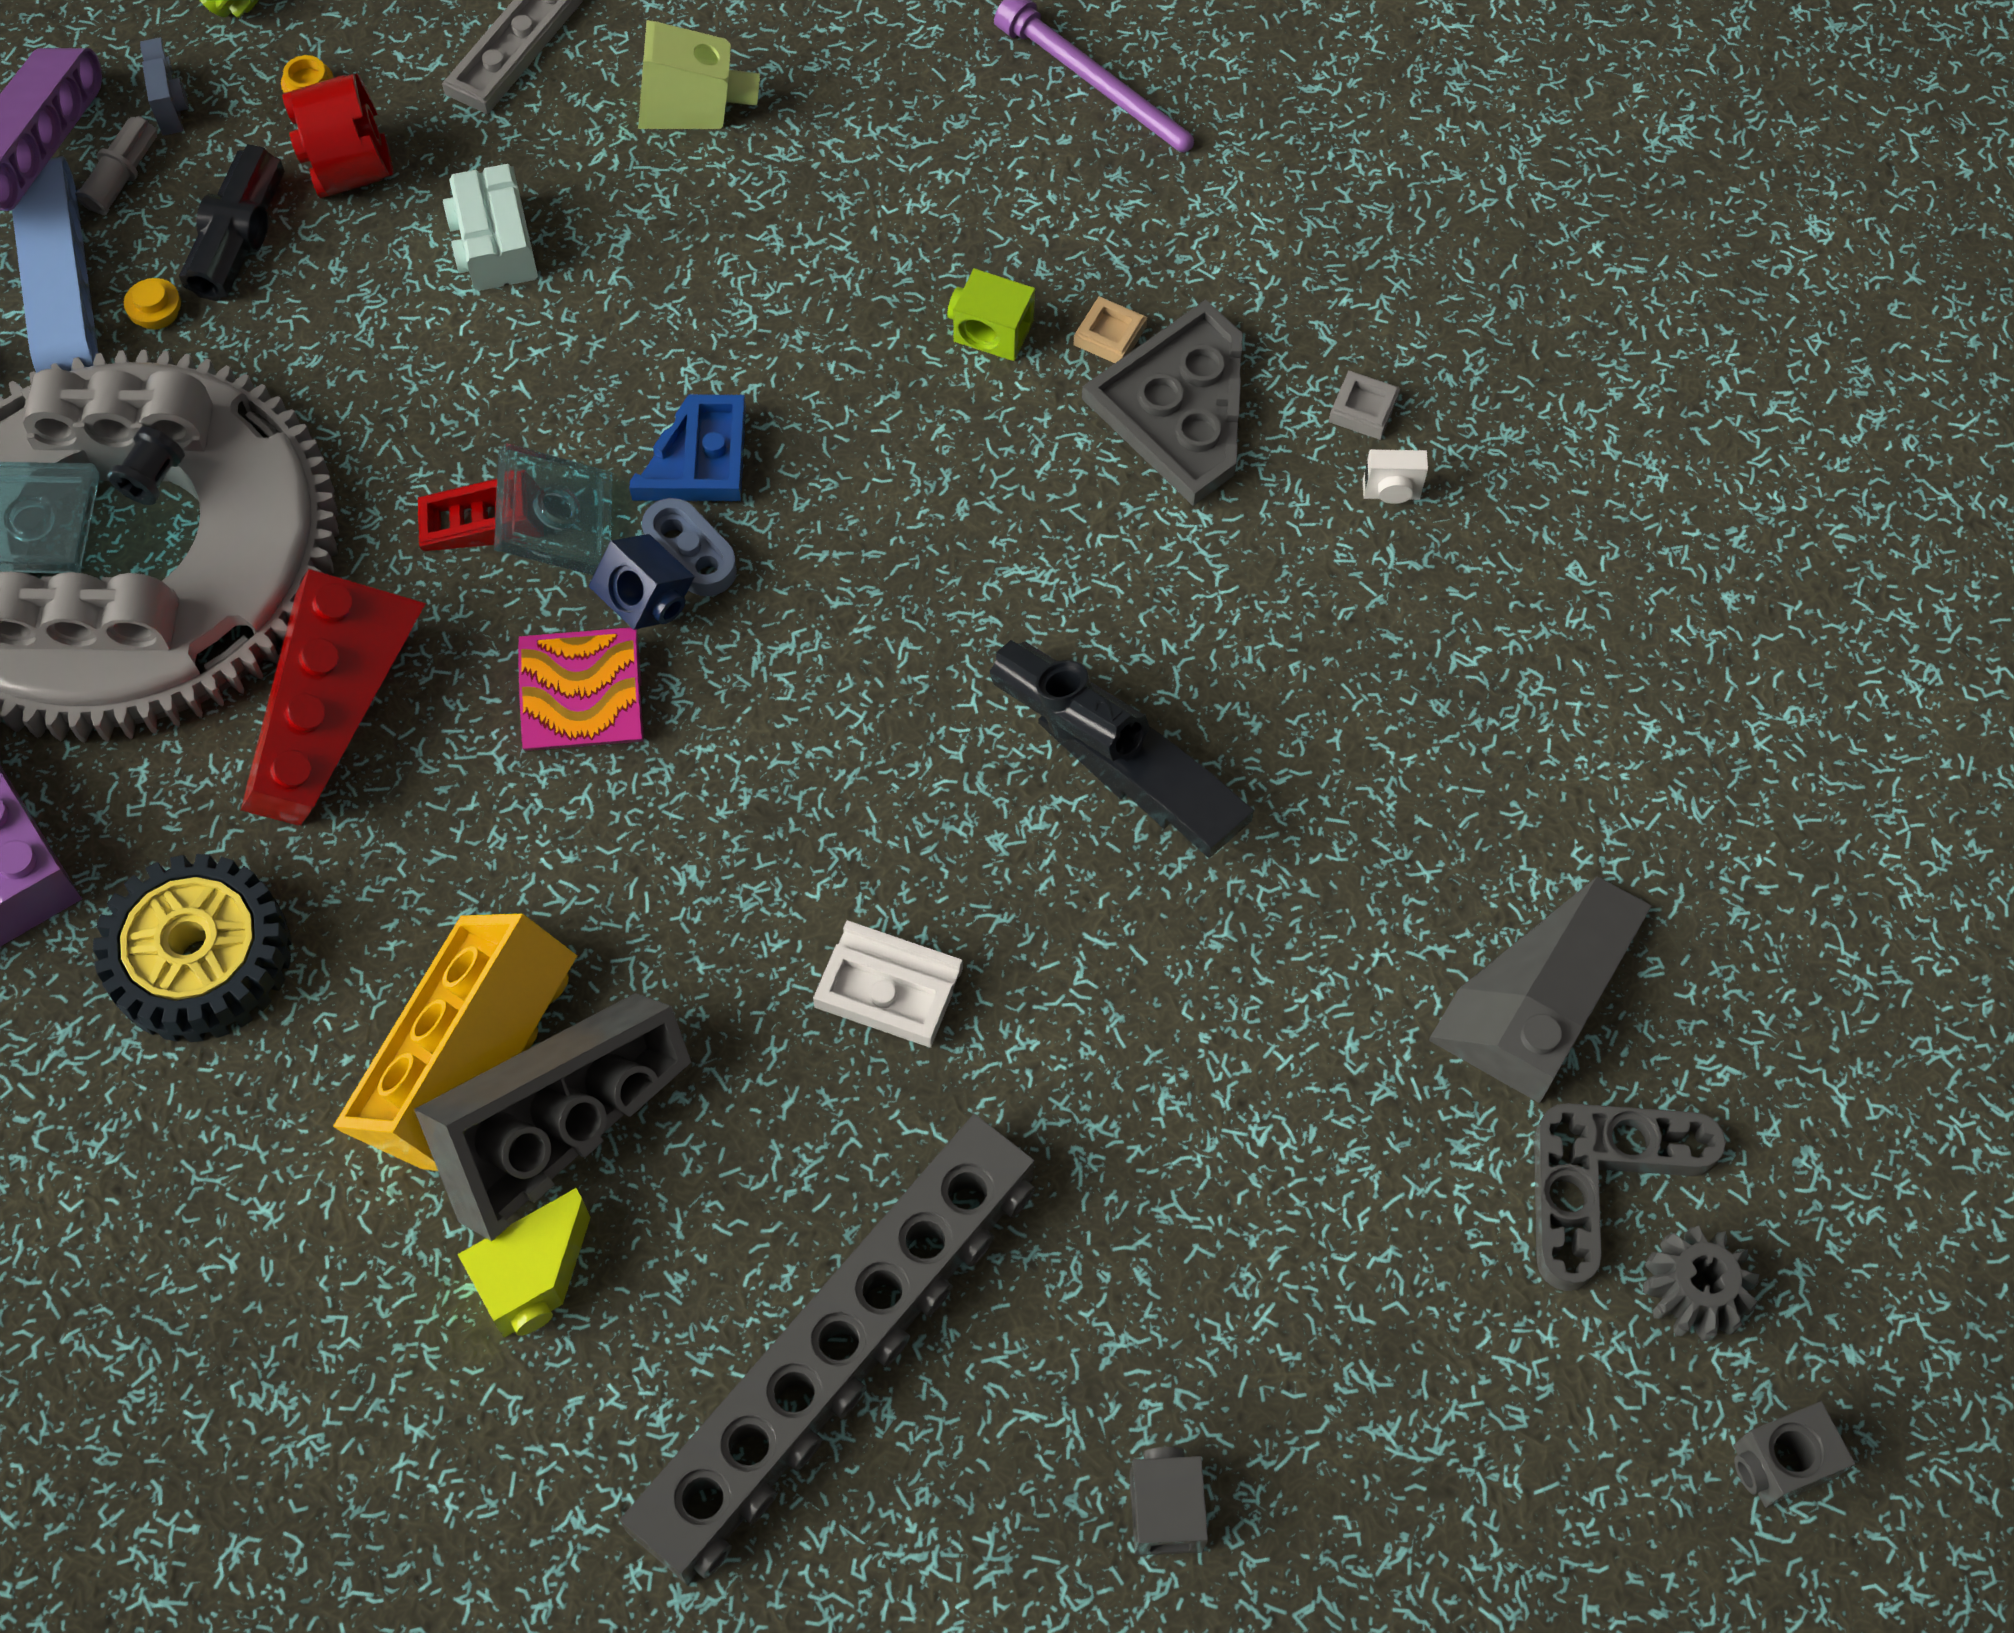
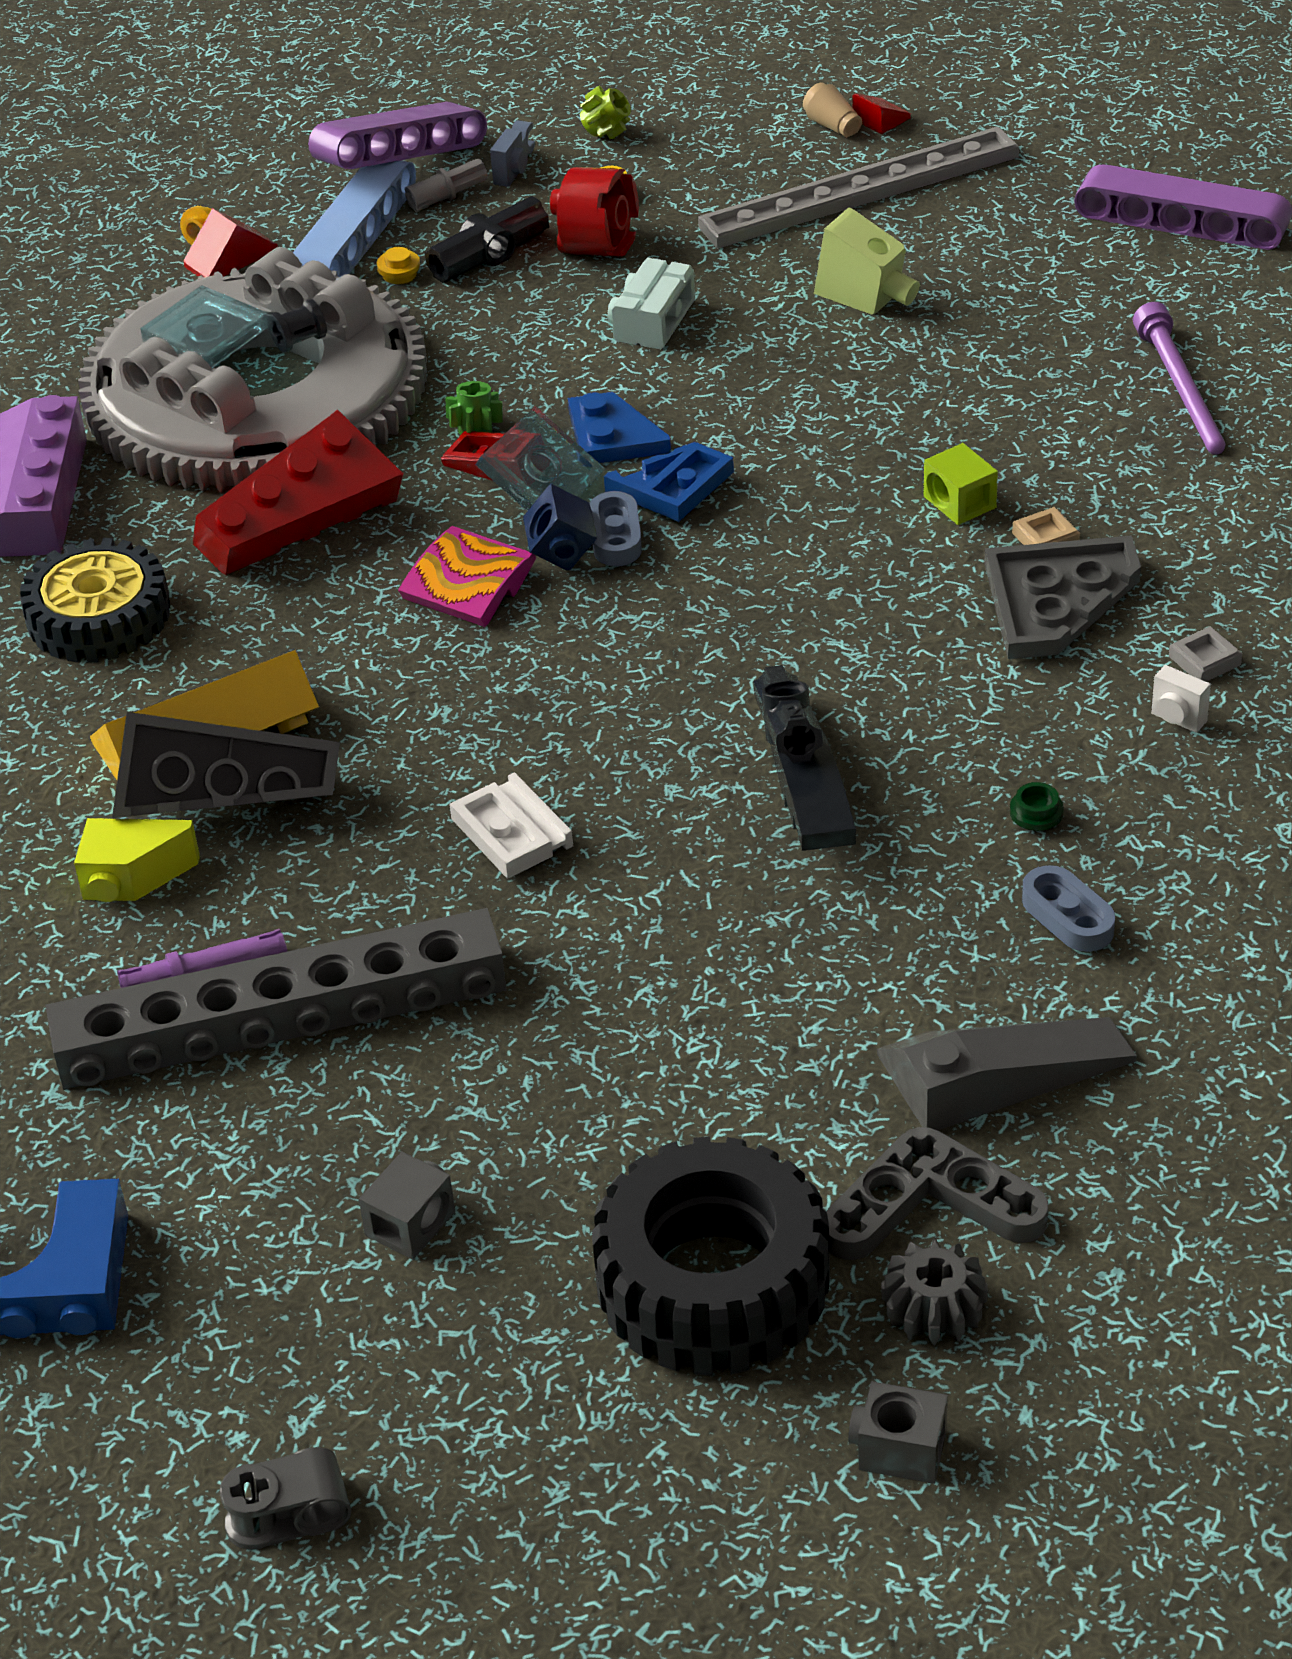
camera: 40 degrees right, 20 degrees down
(413, 466) = (474, 407): none -> bright green gear
(573, 414) = (614, 429): none -> blue wing
(702, 1371) = (224, 954): none -> medium lavender pin
(1358, 673) = (1036, 807): none -> dark green plate
(1478, 773) = (1075, 914): none -> sand blue plate
(1558, 1320) = (725, 1315): none -> black tyre

